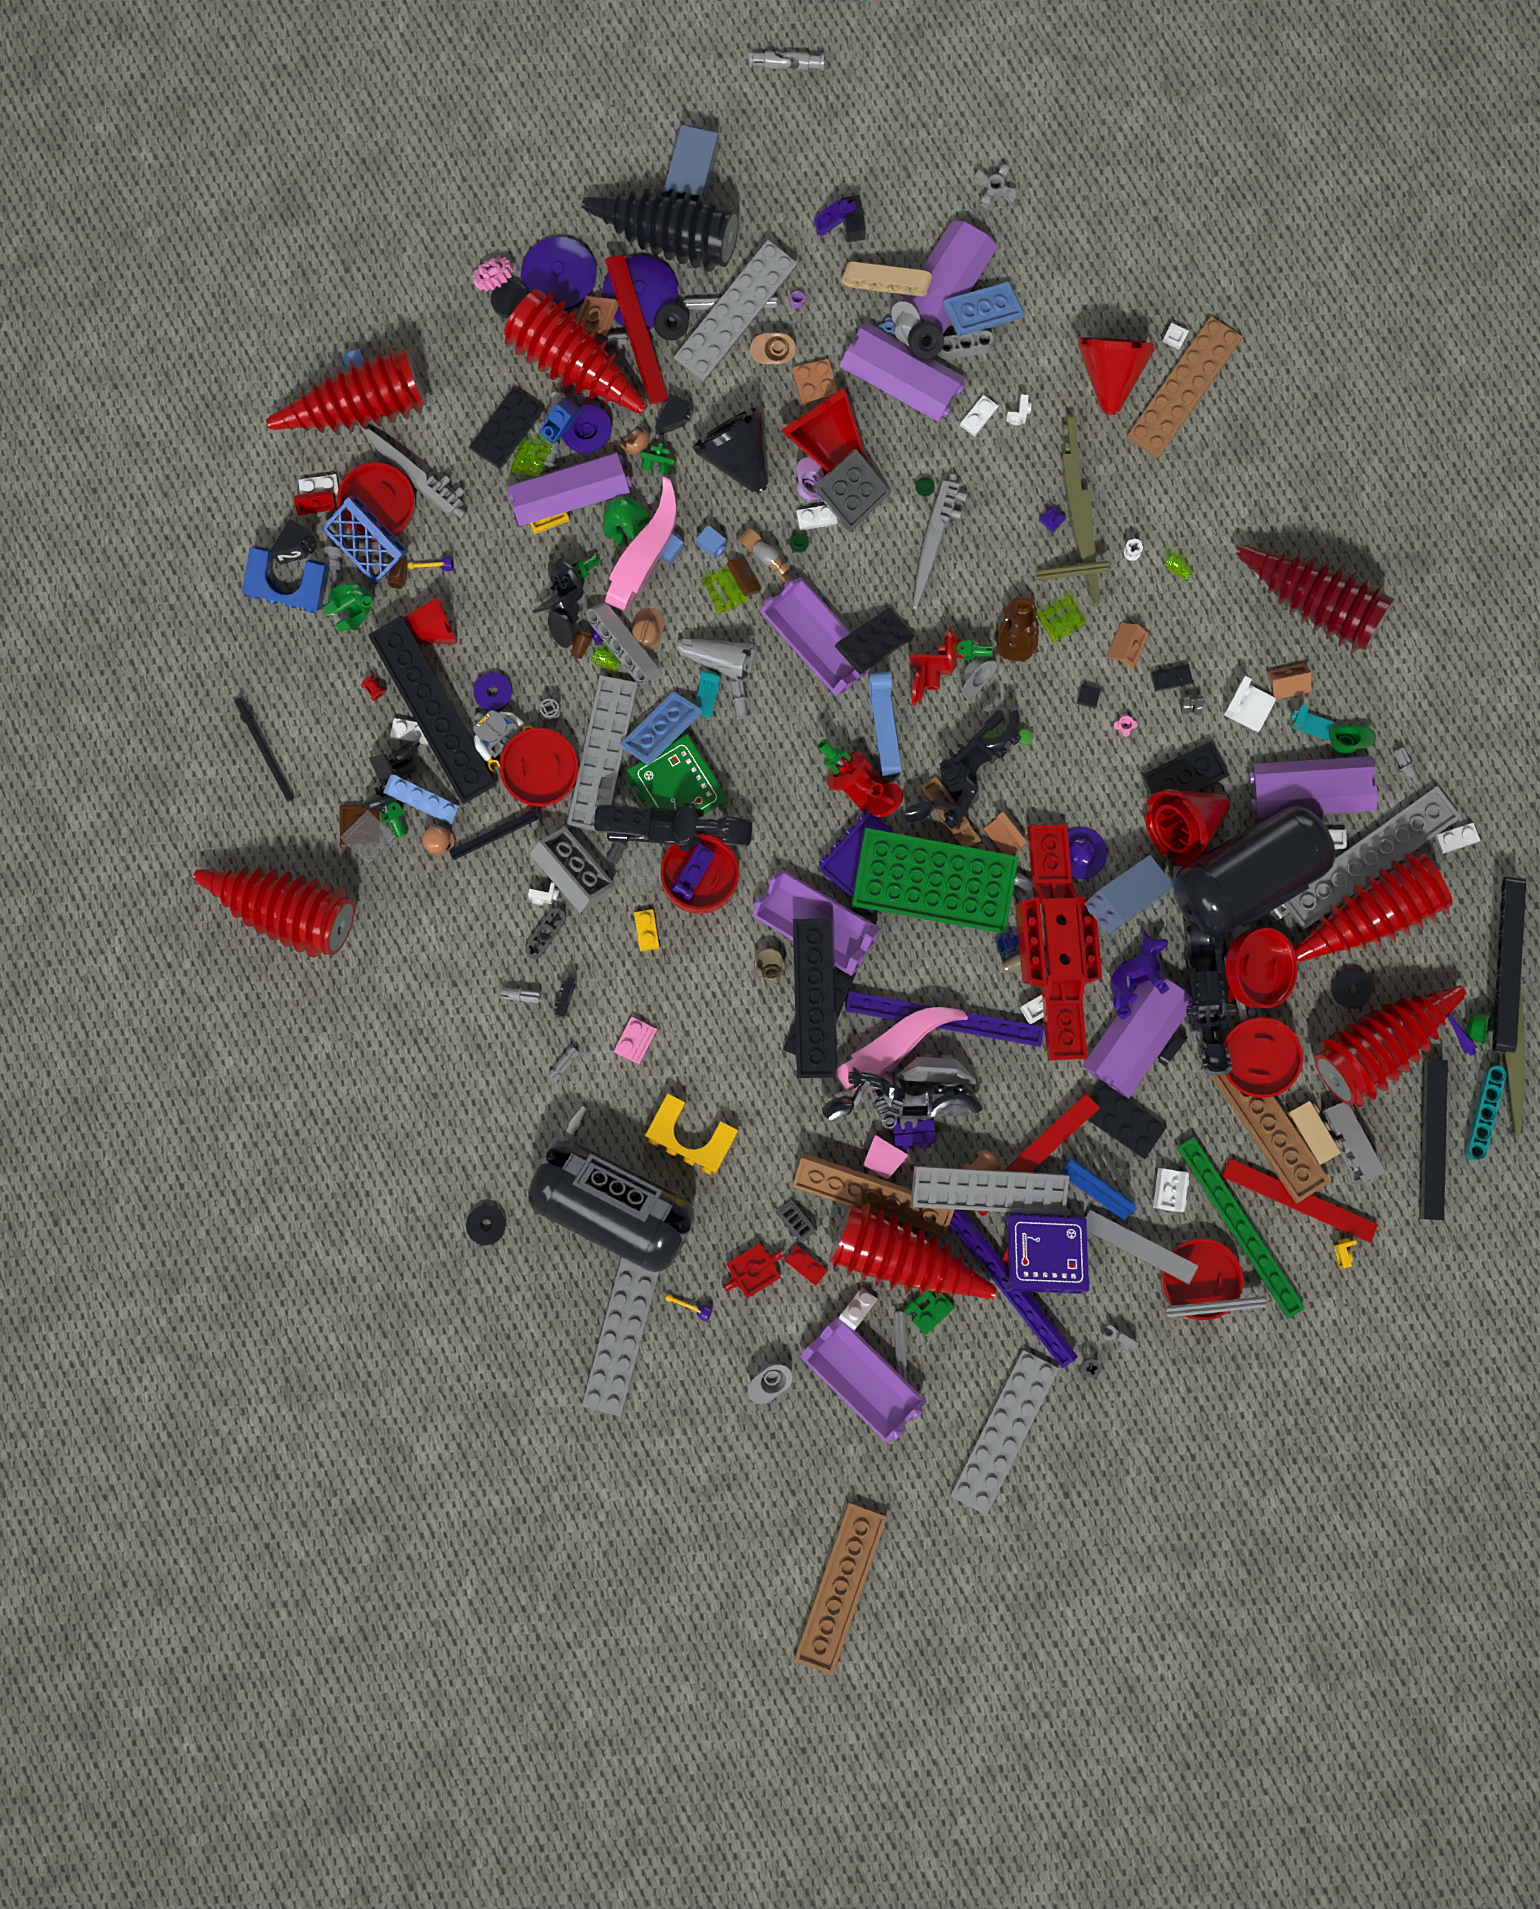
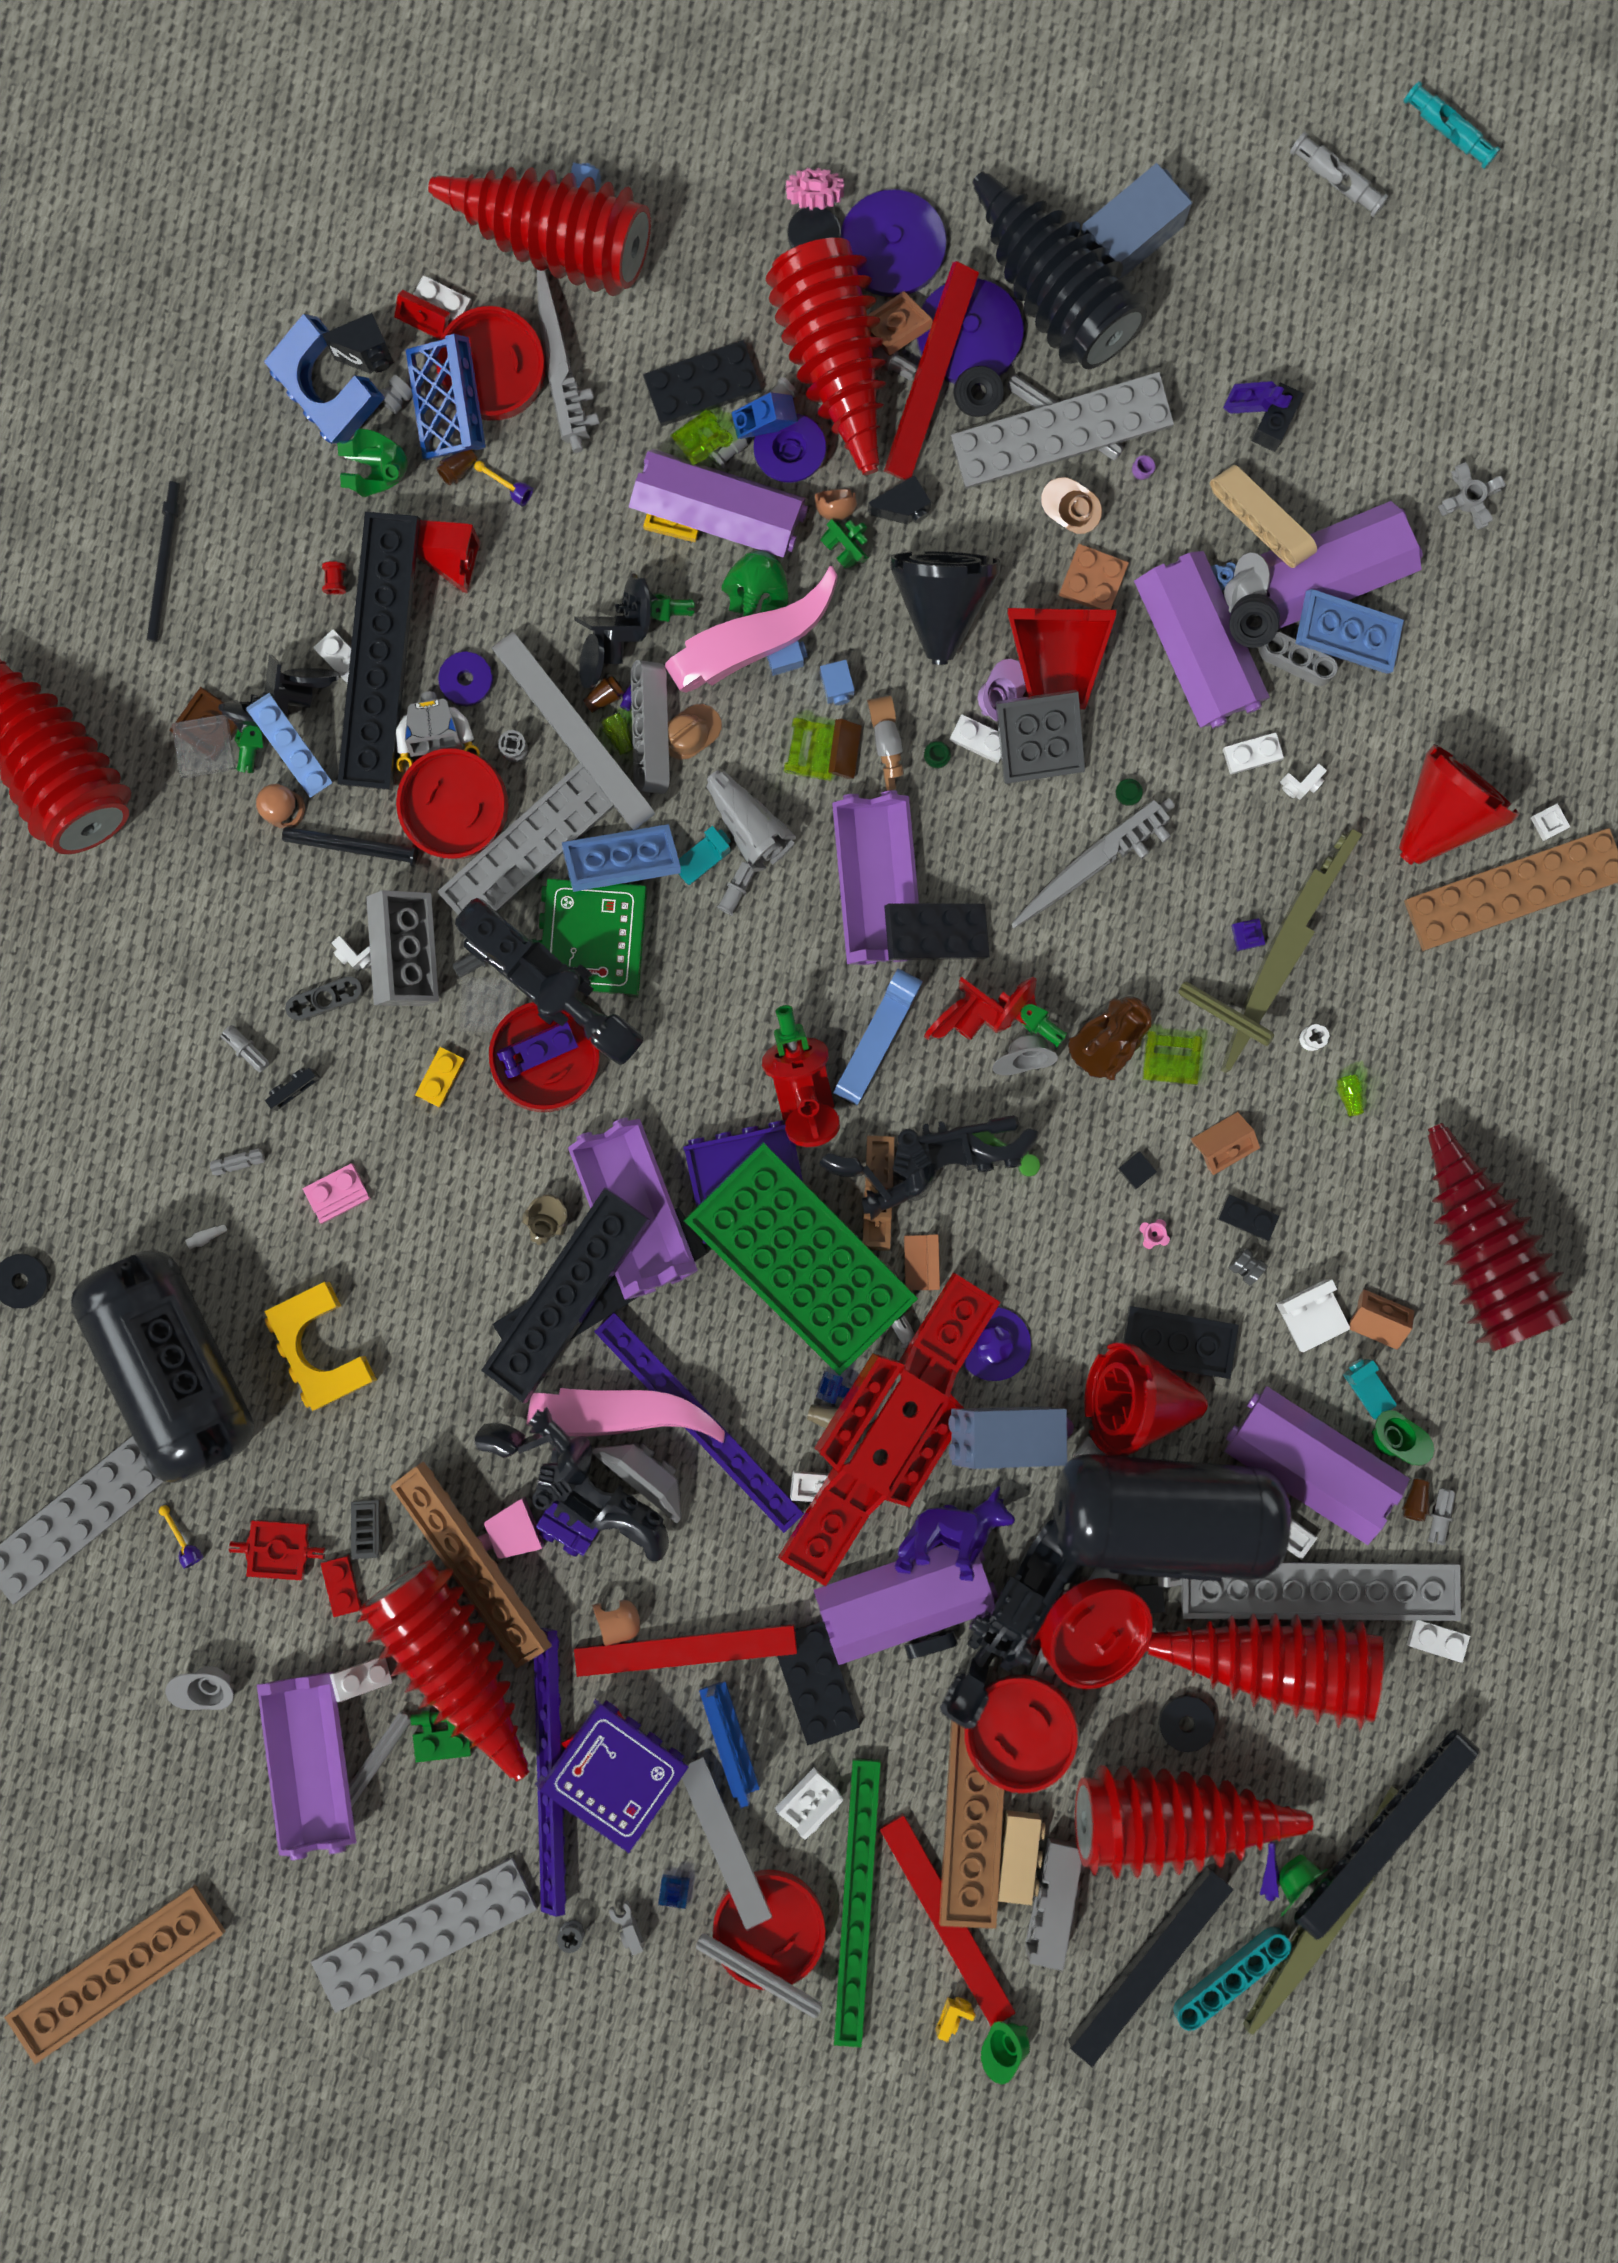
camera: 30 degrees right, 5 degrees up
(579, 675) = (573, 731): none -> light grey beam
(989, 1190) = (600, 1658): light grey plate -> none
(1130, 1300) = (674, 1891): none -> clear blue tile
(1386, 767) = (1417, 1501): none -> reddish brown cone
(1387, 1250) = (1004, 2051): none -> green piece

